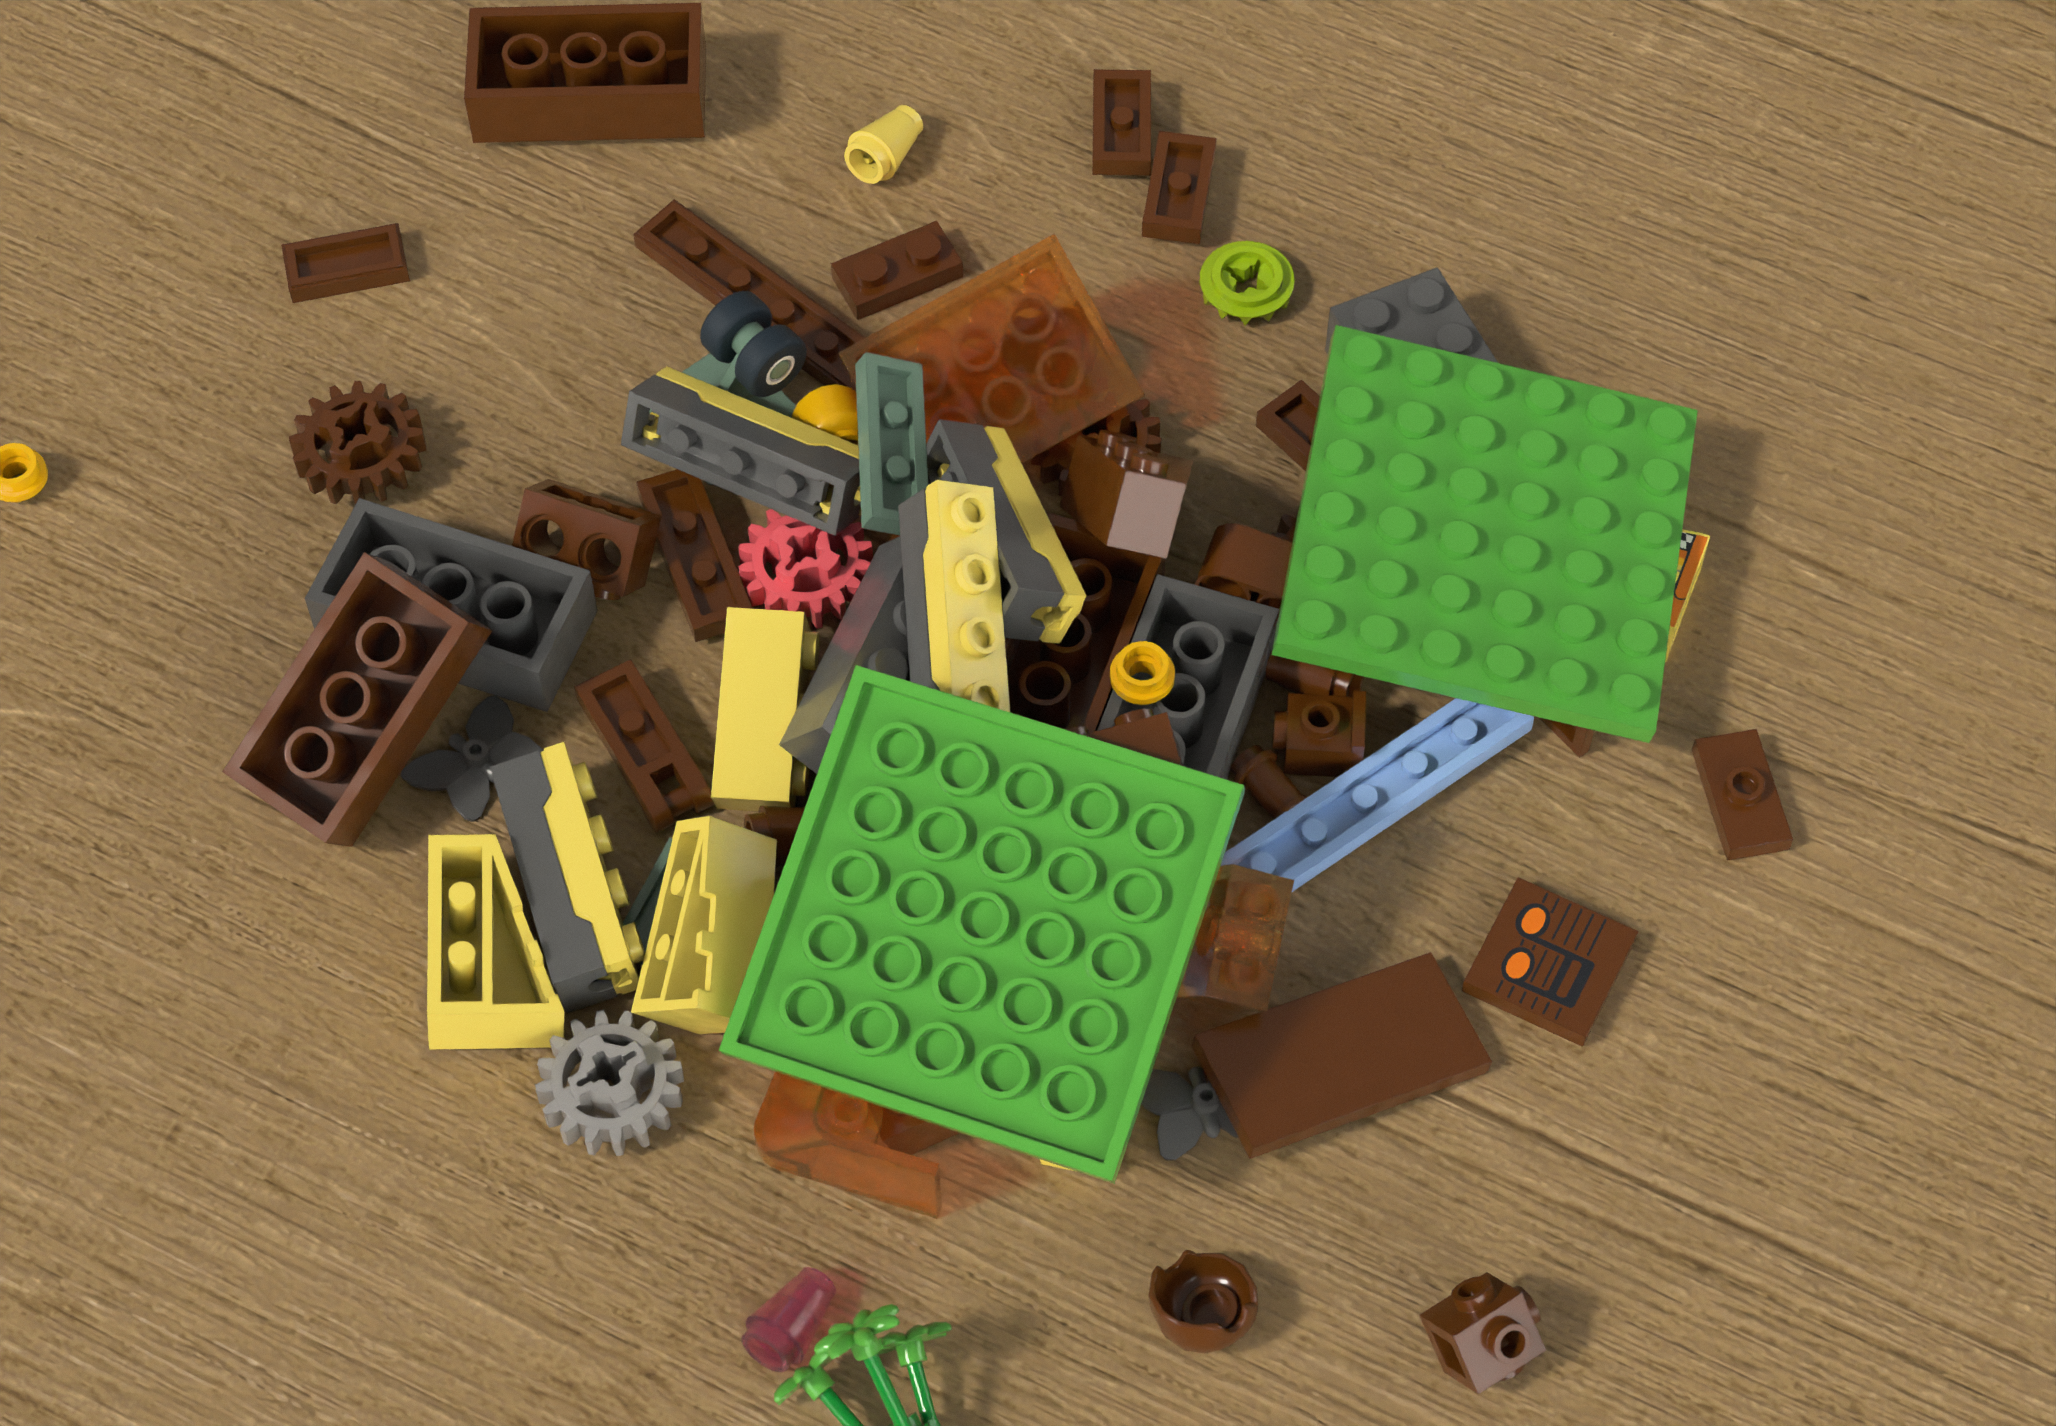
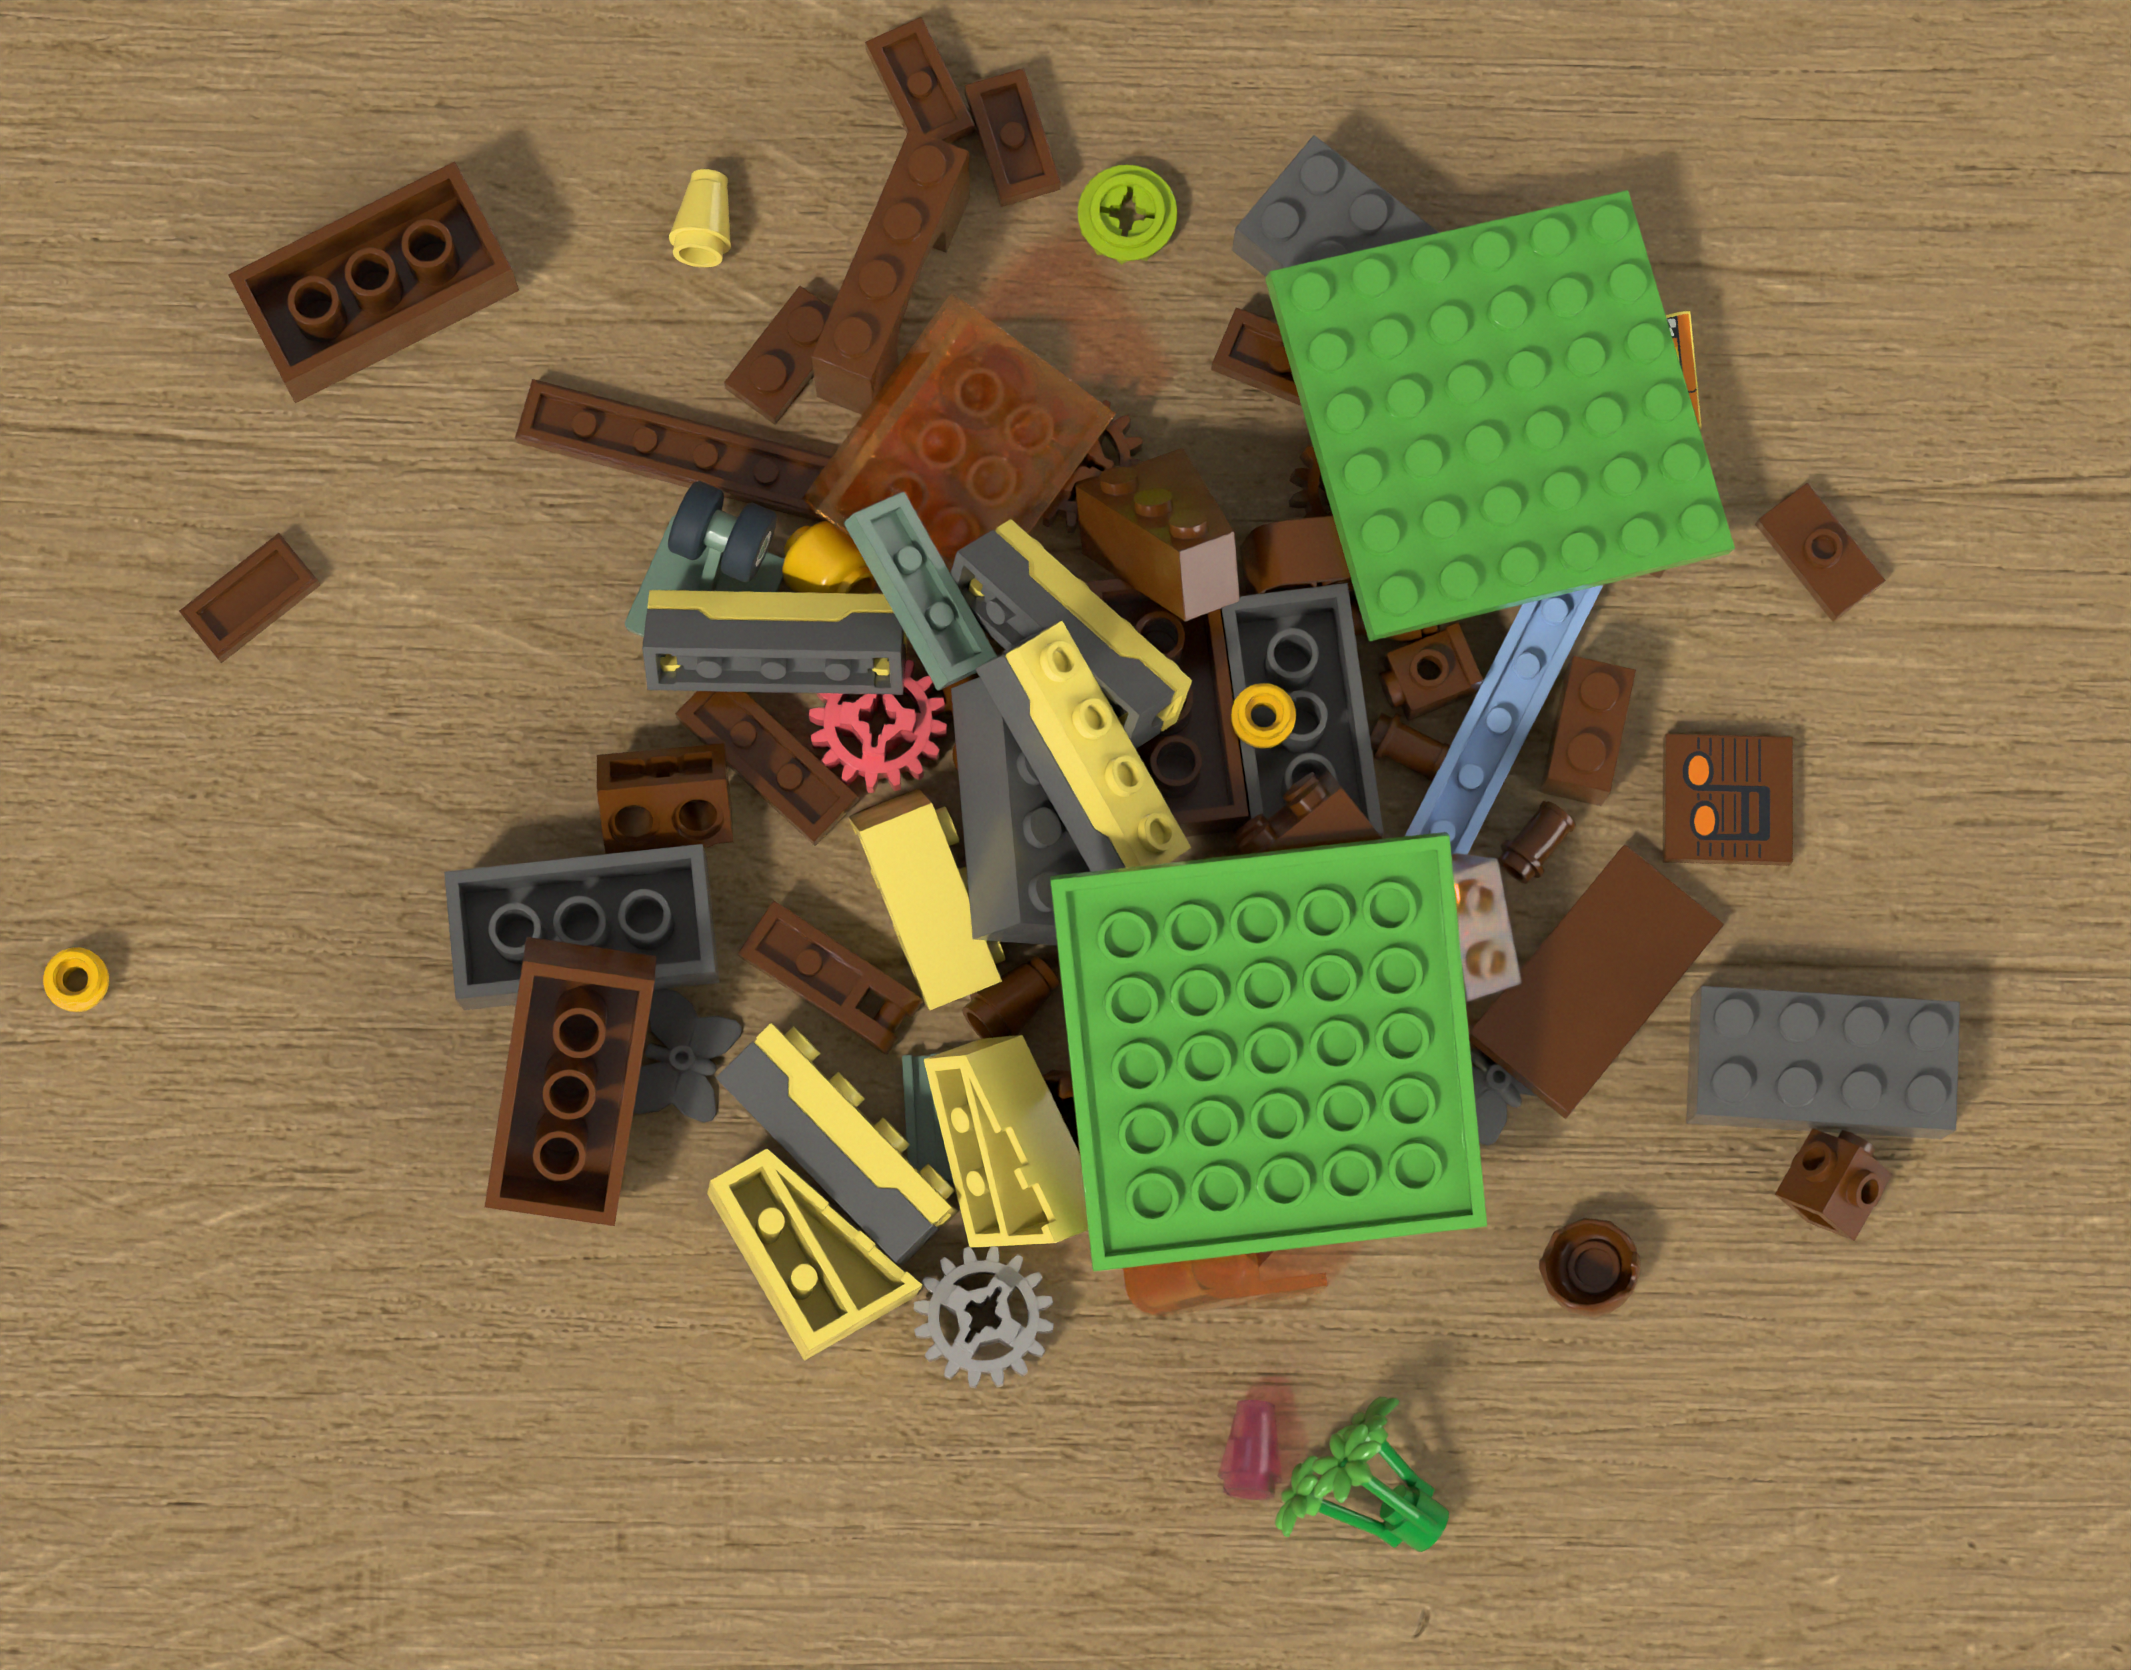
camera: 30 degrees left, 20 degrees up
(358, 443) = (358, 796): reddish brown gear -> none
(1062, 171) = (912, 216): none -> reddish brown arch
(1345, 916) = (1535, 842): none -> reddish brown pin
(1442, 838) = (1587, 731): none -> reddish brown brick
(1530, 1214) = (1823, 1062): none -> dark grey brick

